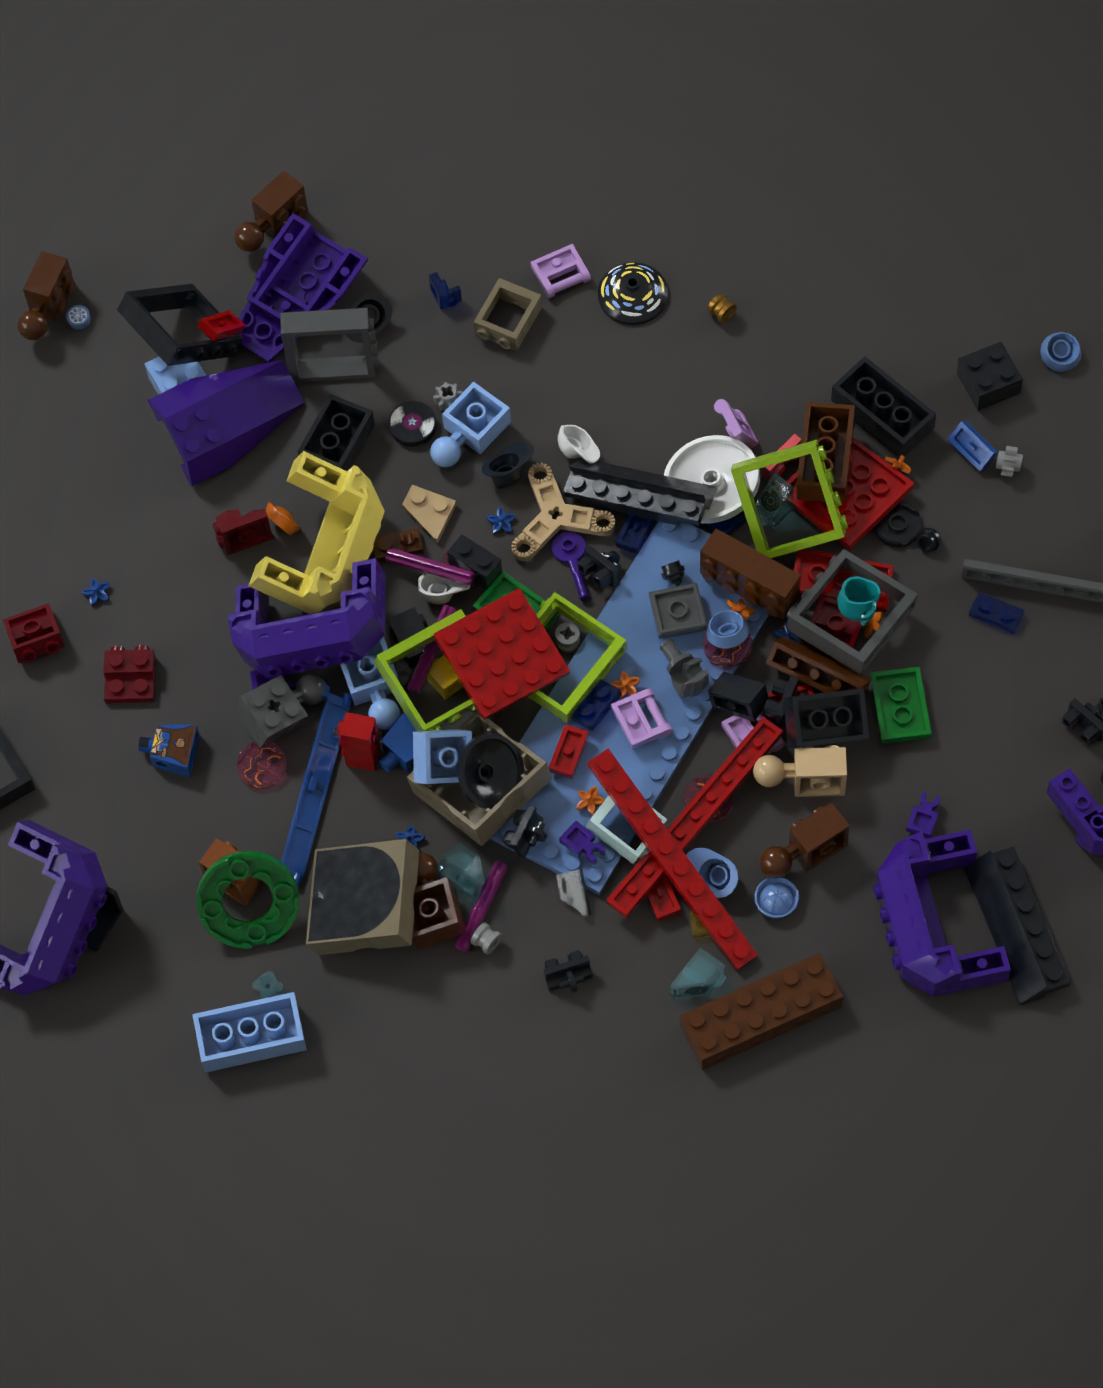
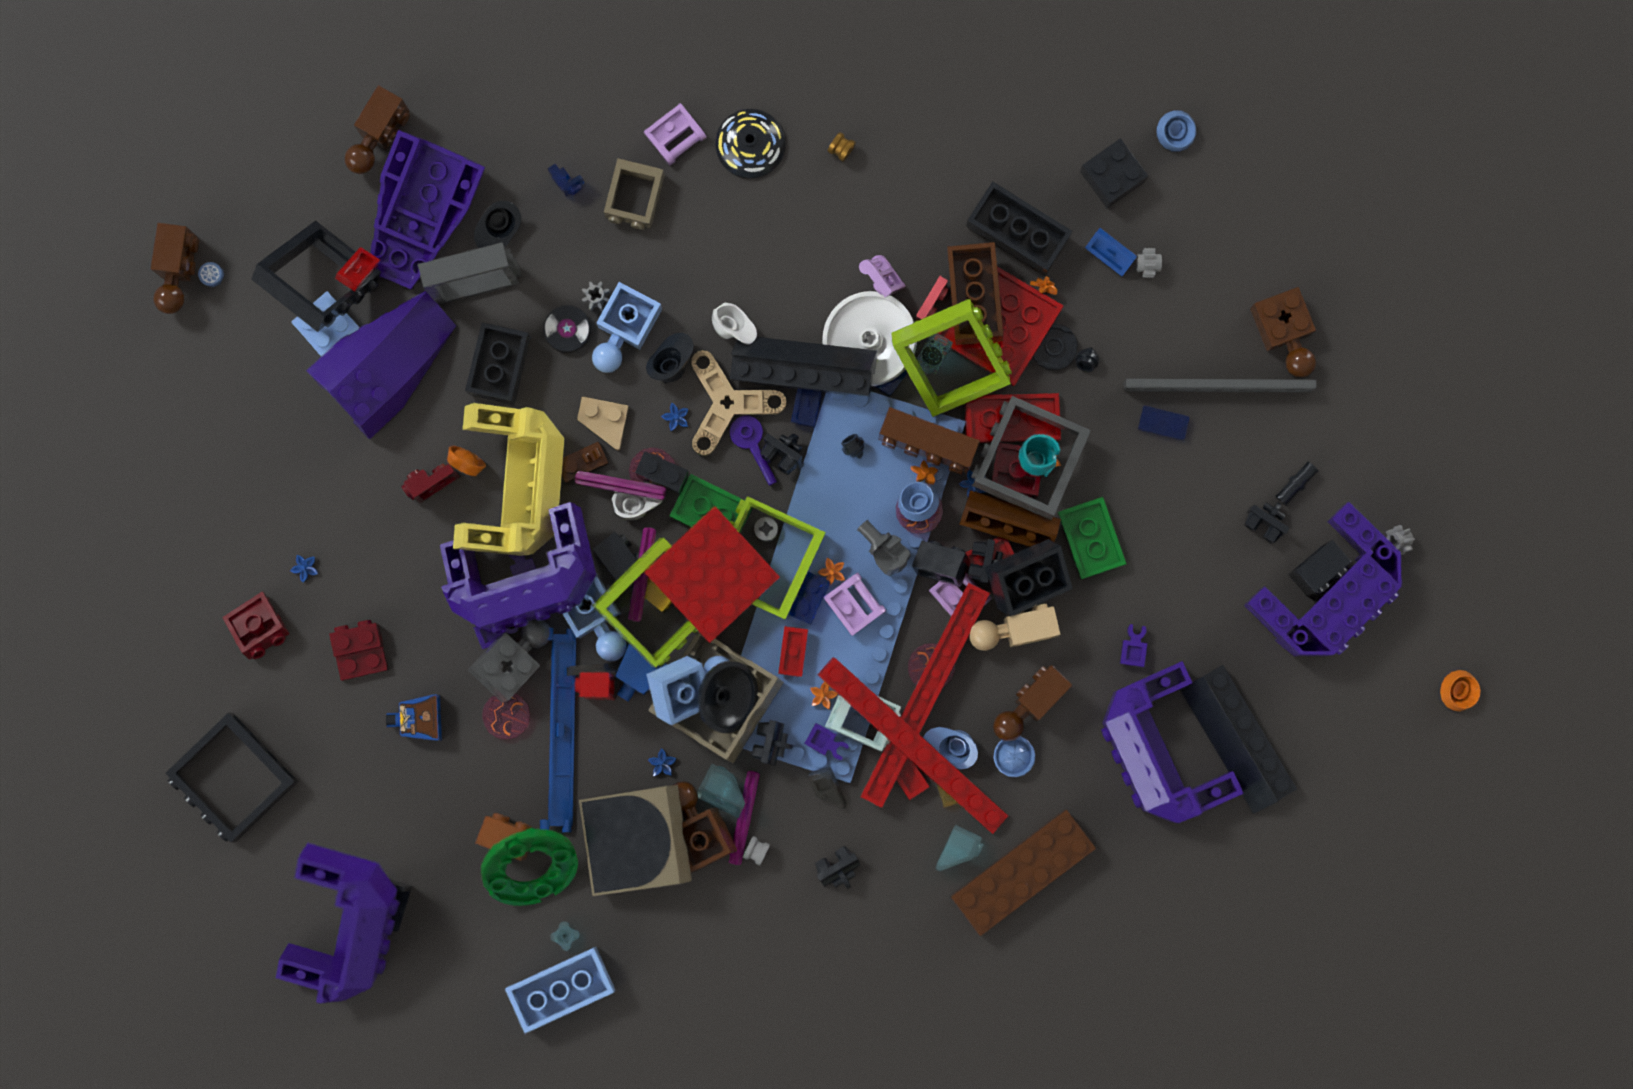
camera: 15 degrees left, 20 degrees up
(678, 610) = (866, 486): dark grey plate -> none

